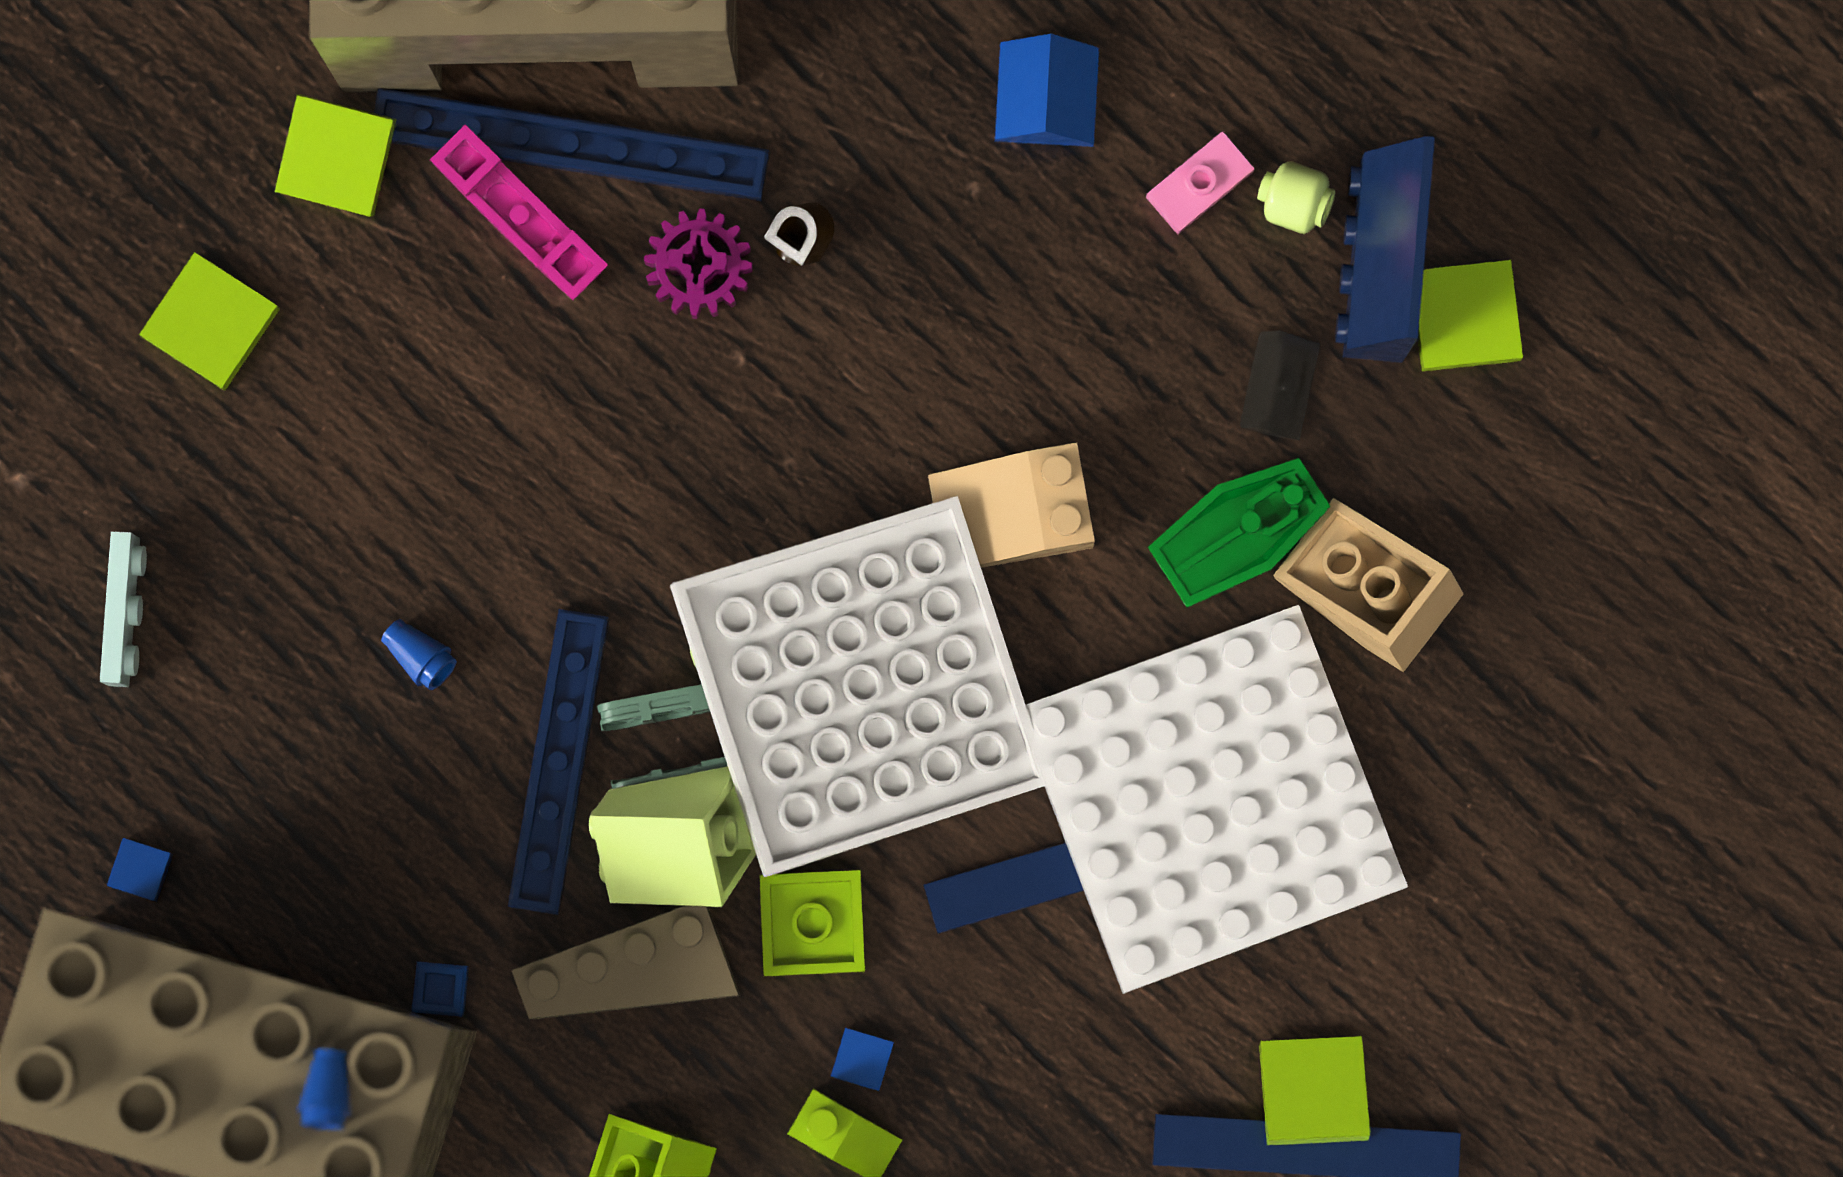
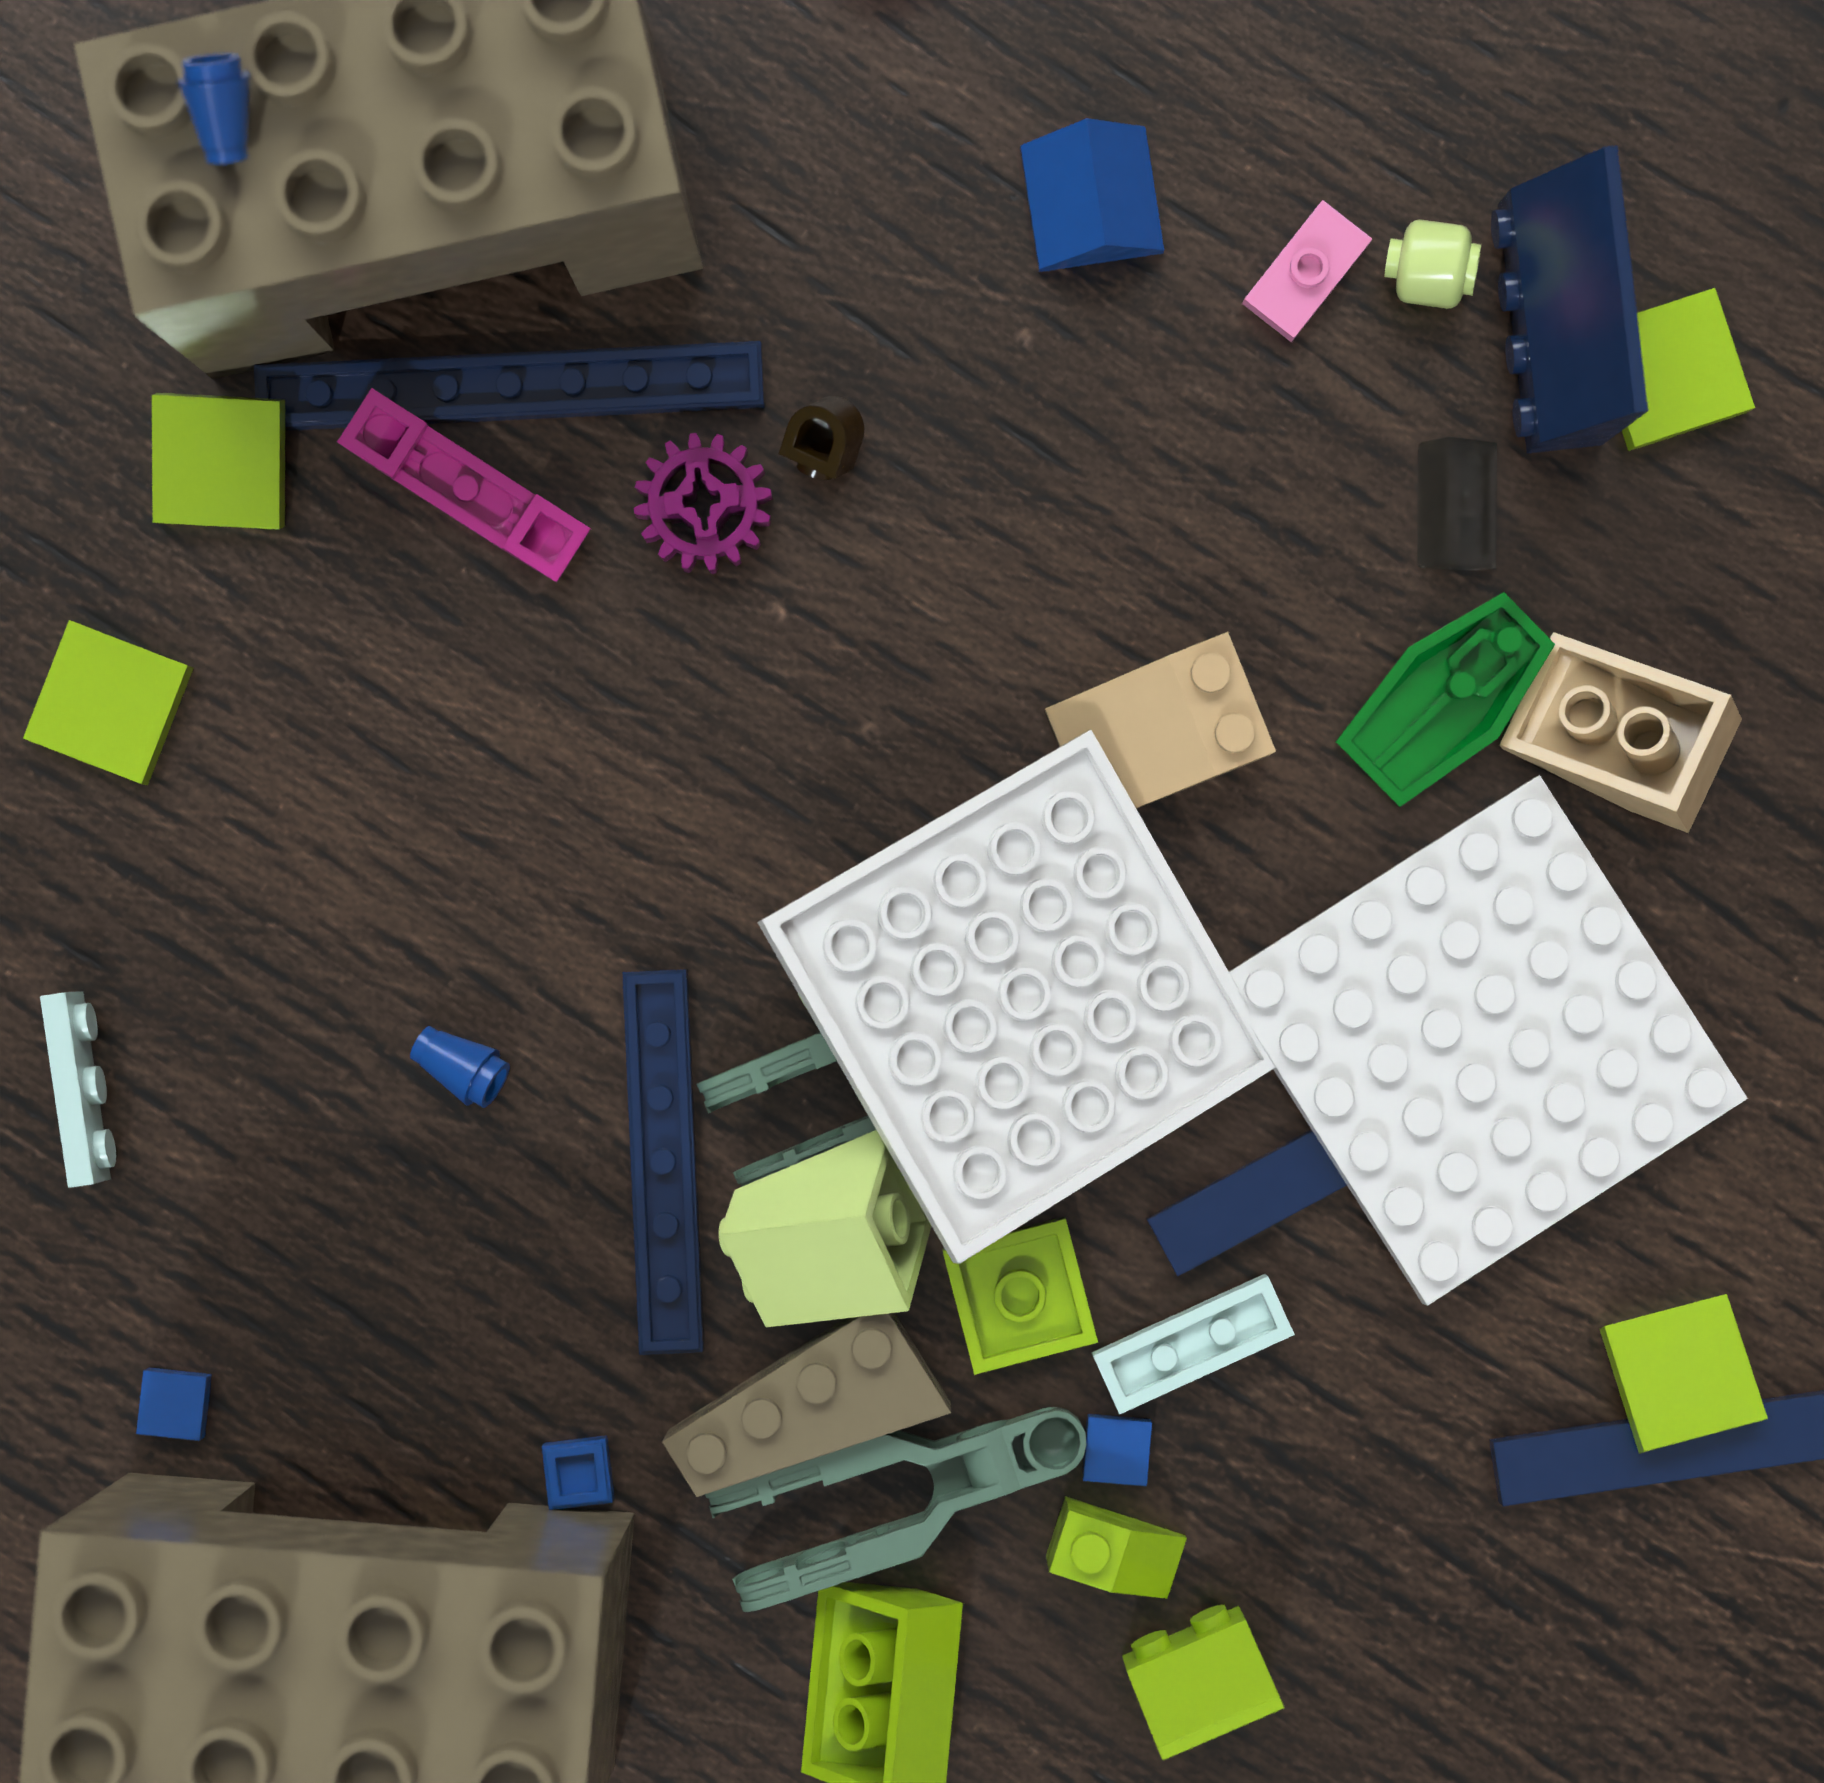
camera: 15 degrees left, 5 degrees up
(326, 1092) = (459, 1697): blue cone -> none
(737, 1049) = (964, 1470): none -> sand green piece
(938, 987) = (1193, 1343): none -> light aqua plate

